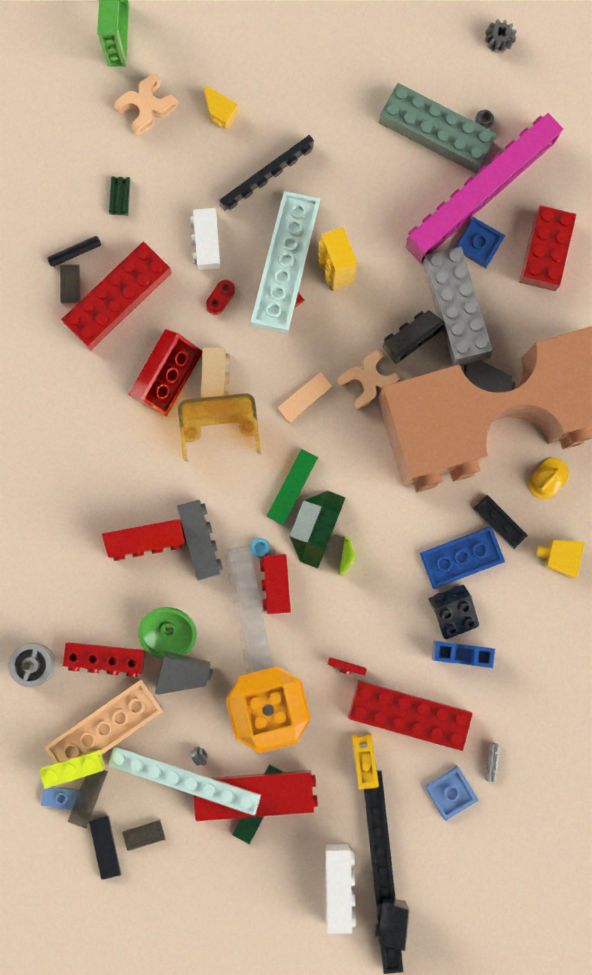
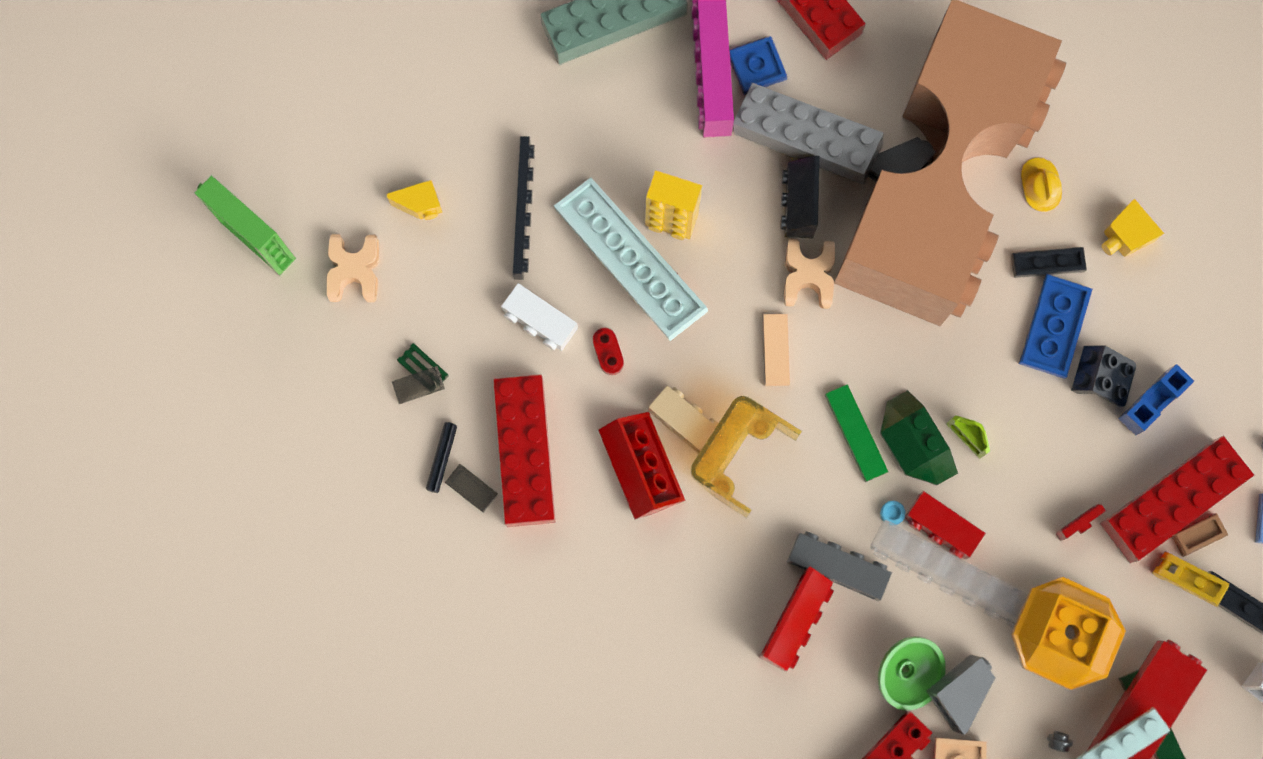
camera: 45 degrees left, 5 degrees down
(105, 201) = (418, 385): none -> clear smoke tile
(400, 747) = (1200, 535): none -> medium nougat tile

